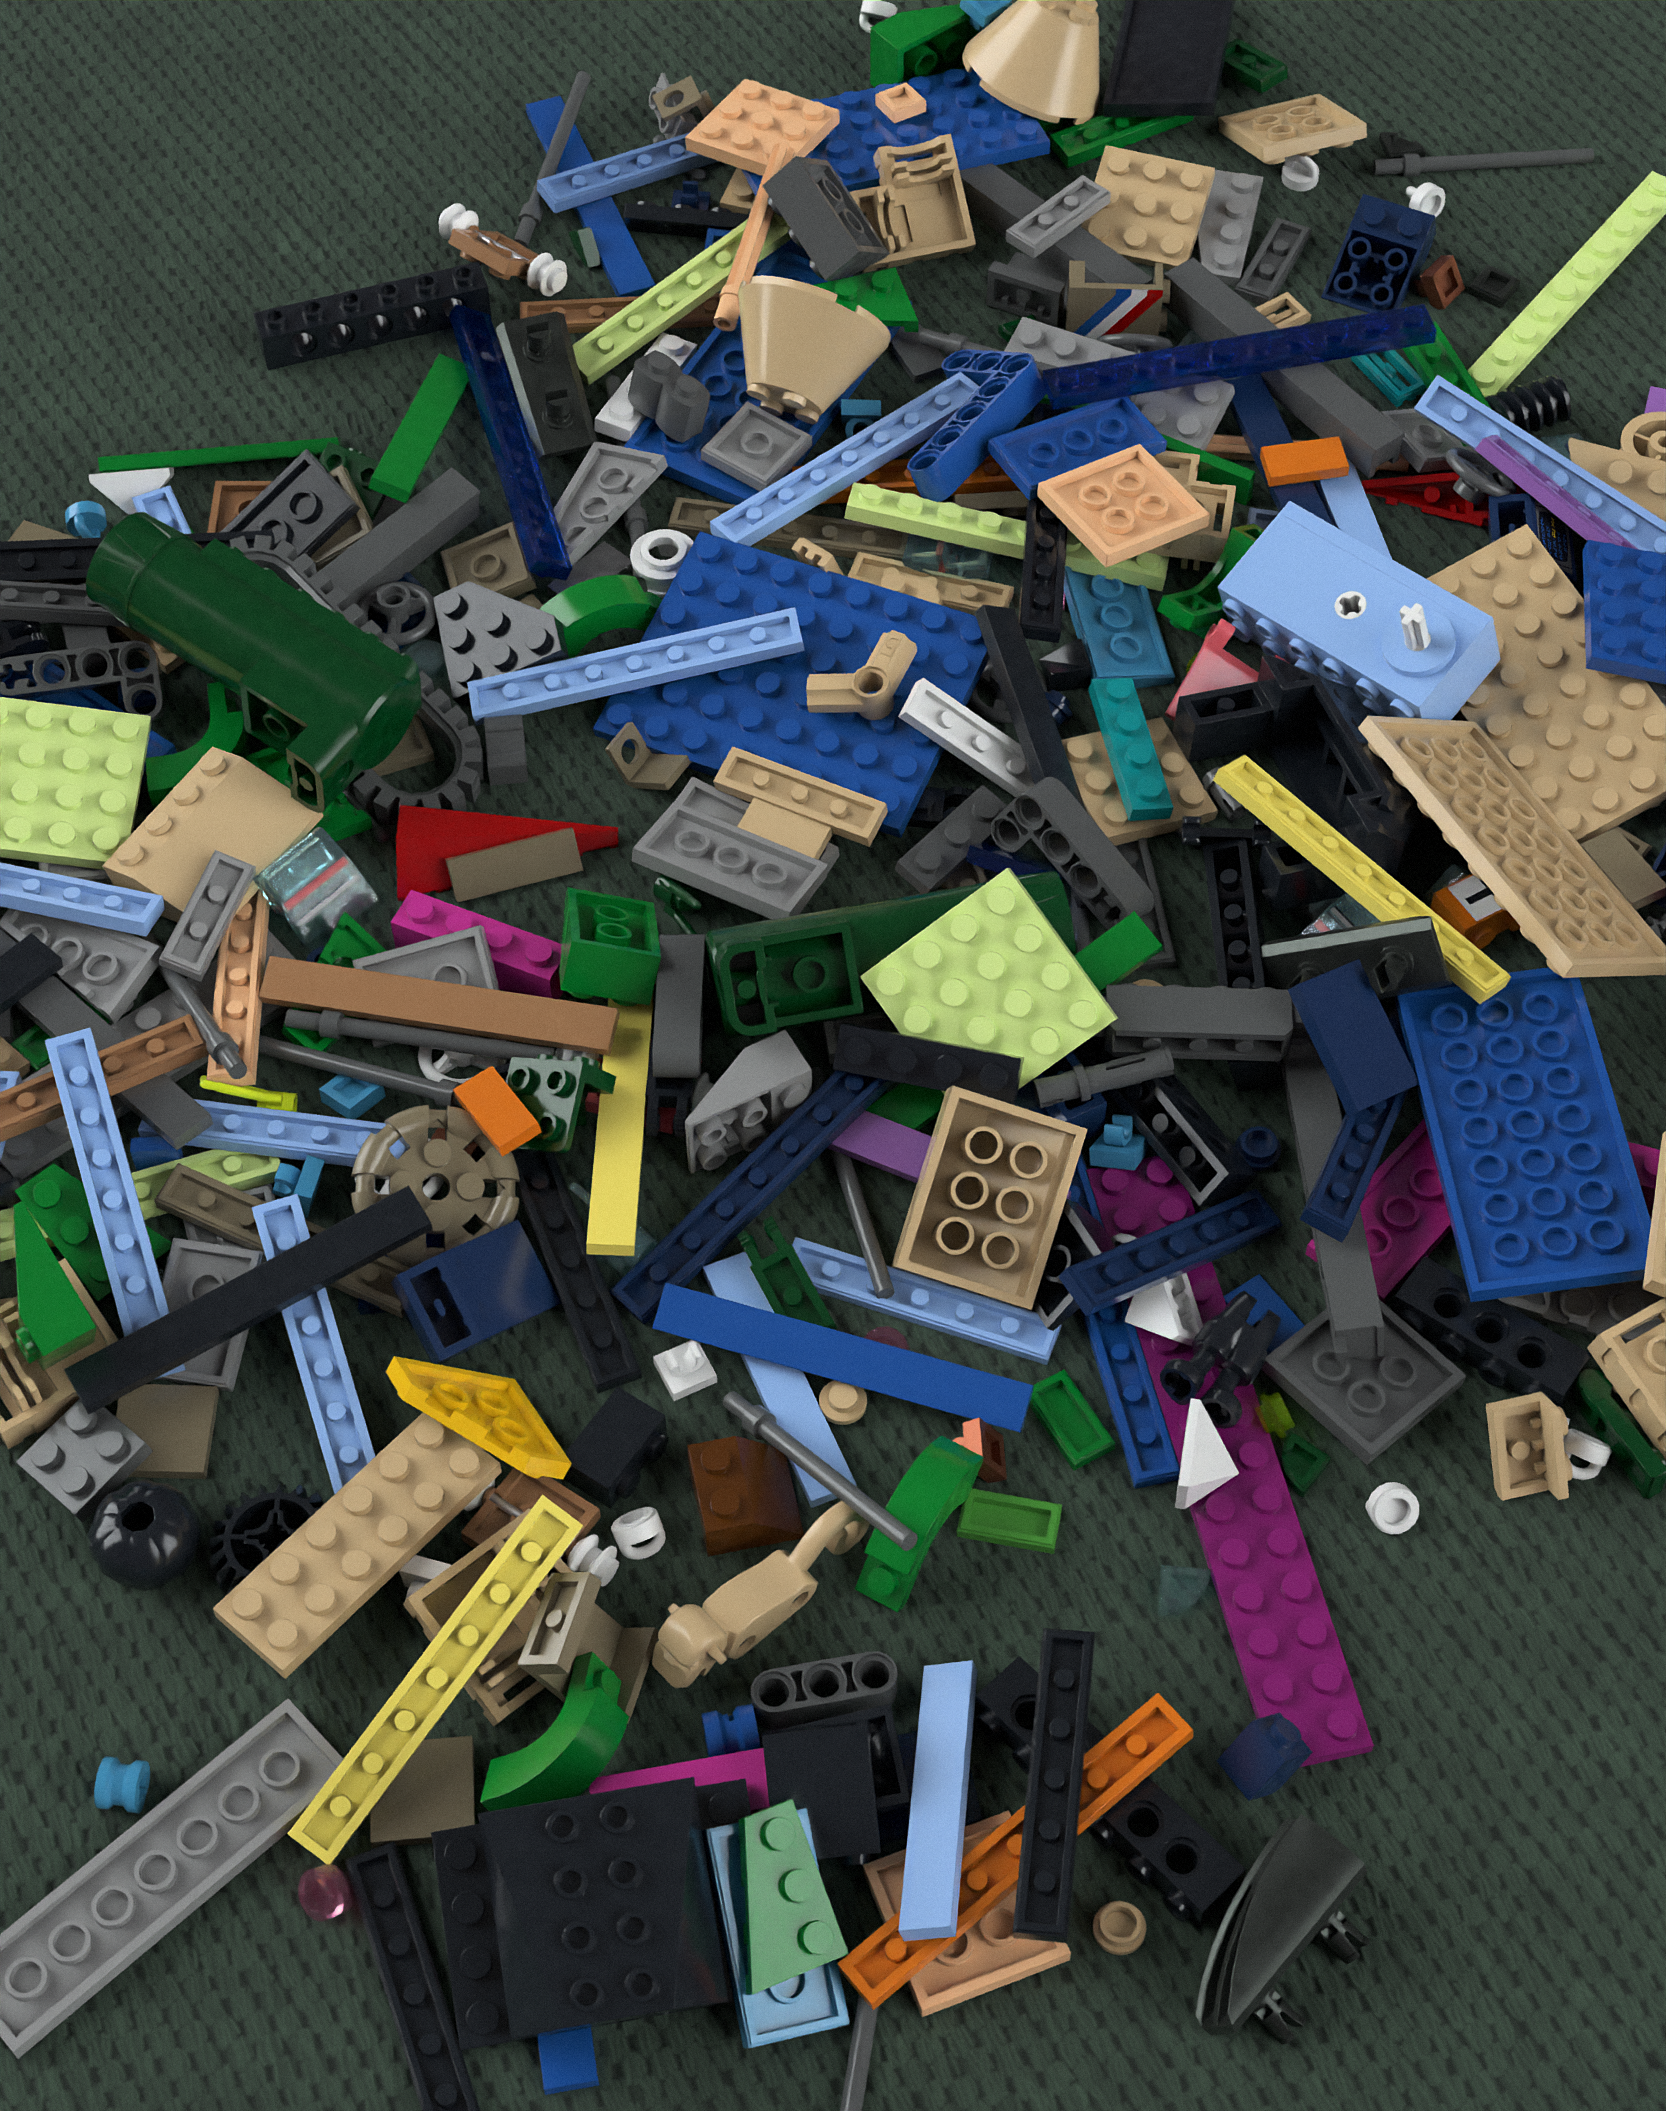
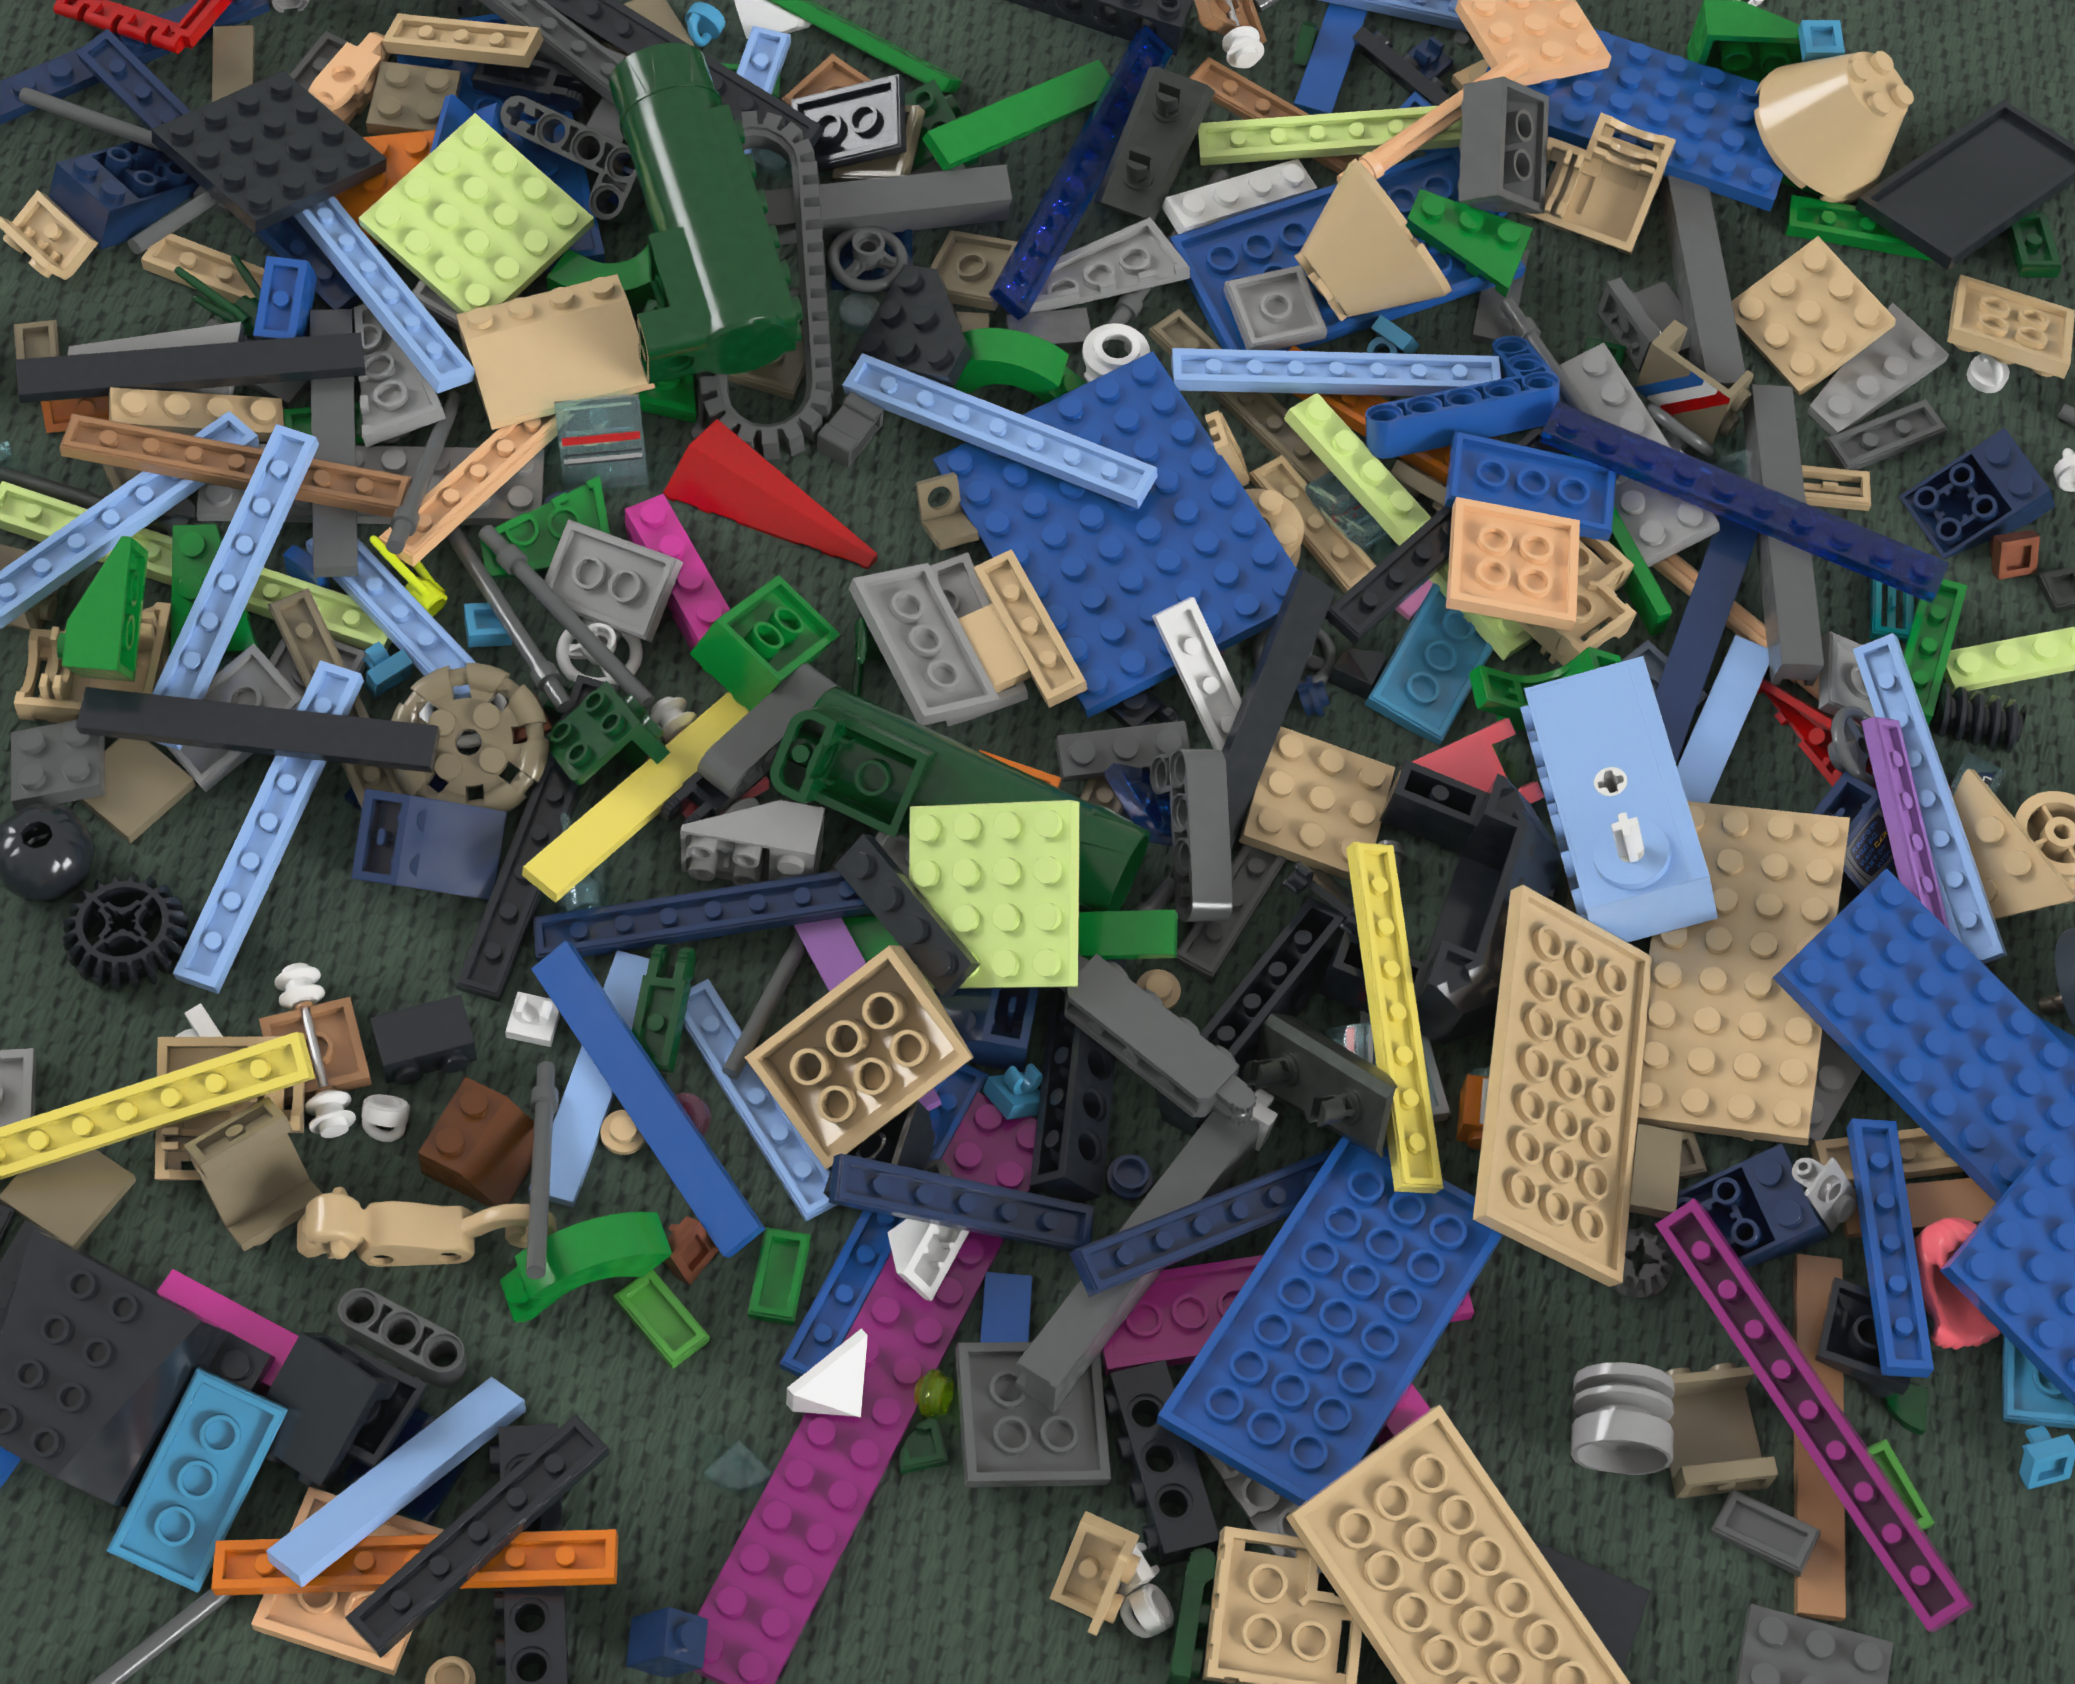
camera: 30 degrees right, 5 degrees up
(207, 916) = (494, 408): light grey tile -> none
(356, 1543) = (173, 969): tan plate -> none
(440, 1005) = (599, 603): medium nougat tile -> none
(484, 1410) = (343, 938): yellow plate -> none
(497, 1111) = (553, 715): orange tile -> none
(514, 864) = (770, 528): dark tan tile -> none
(570, 1751) = (181, 1238): green arch -> none
(668, 396) = (1234, 218): dark grey brick -> none
(730, 1733) = (305, 1313): blue wheel -> none
(786, 1903) = (212, 1465): wing -> none
(849, 691) = (1137, 567): tan piece -> none
(900, 102) = (1674, 83): light nougat tile -> none
(1058, 216) = (1716, 273): light grey tile -> none
(1114, 1074) = (1020, 1020): dark grey pin -> none
(1130, 749) = (1332, 775): teal plate -> none
(1231, 1347) = (940, 1316): black piece -> none
(1304, 461) = (1720, 631): orange tile -> none
(1353, 1037) = (1255, 1141): dark blue tile -> none
(1393, 1508) = (954, 1536): white tile -> none

